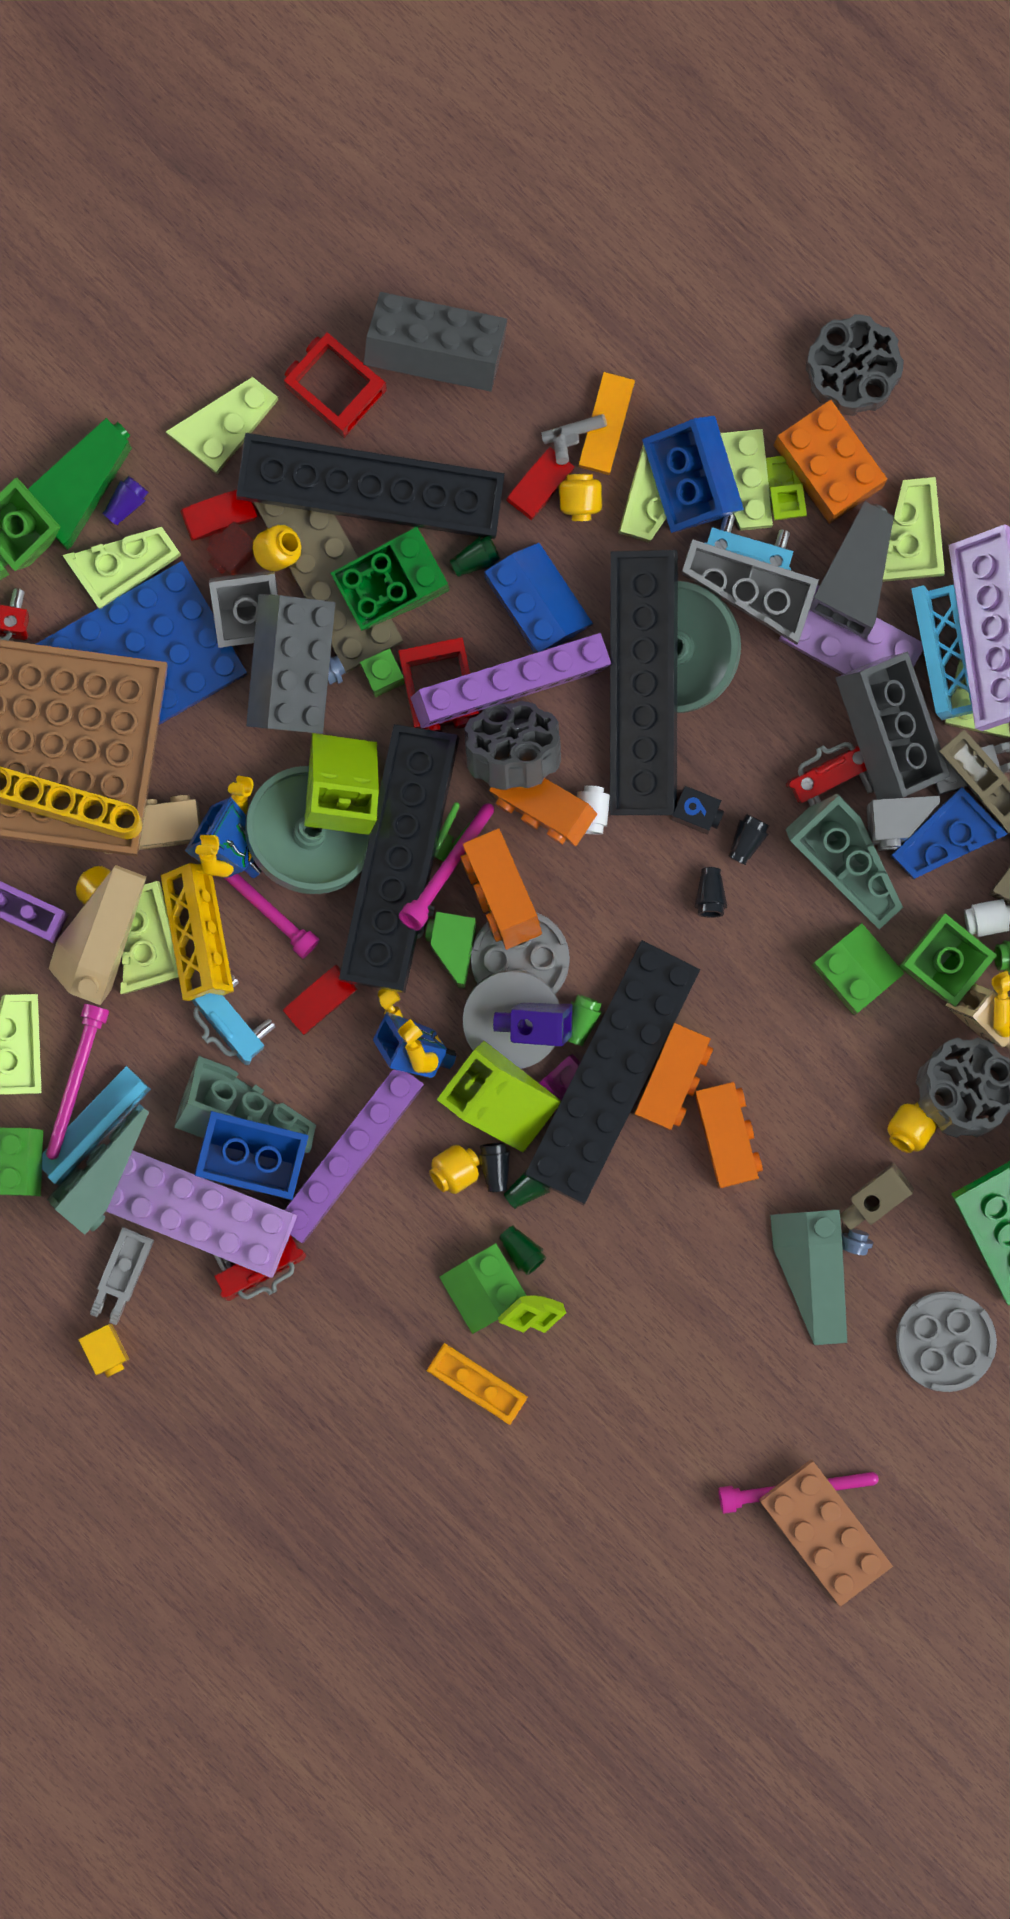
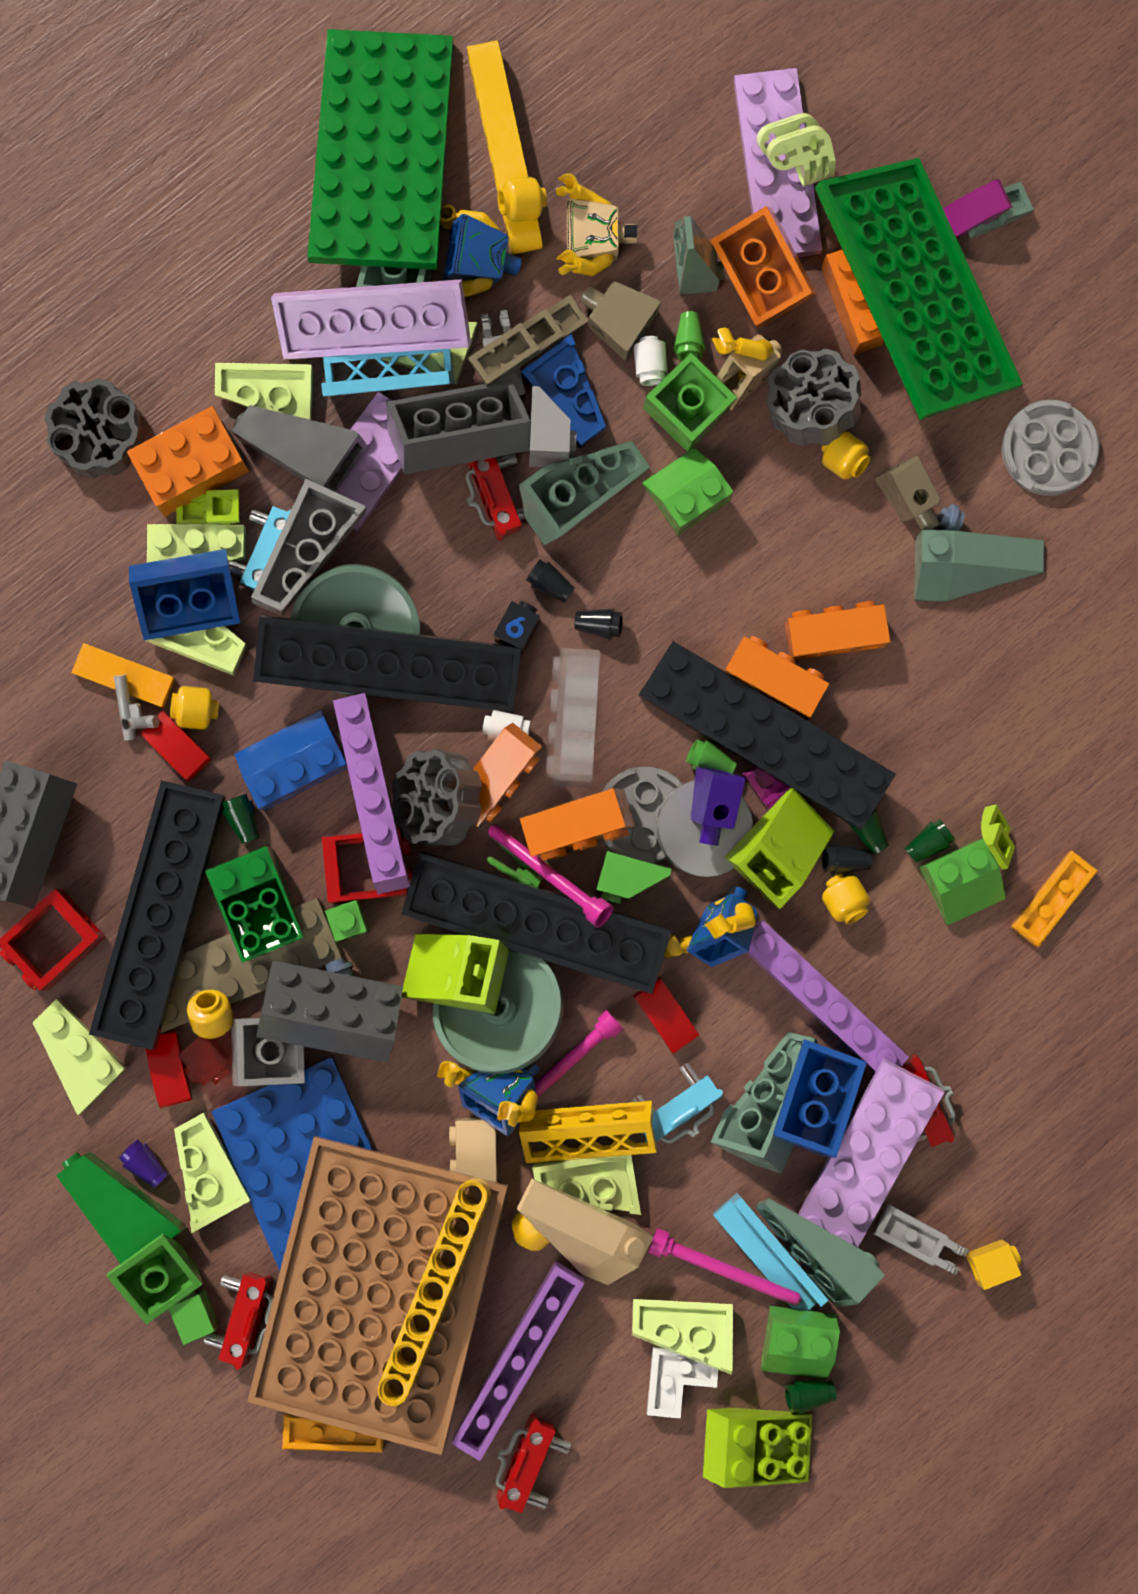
camera: 90 degrees left, 0 degrees up
(608, 876) = (575, 717): none -> clear brick

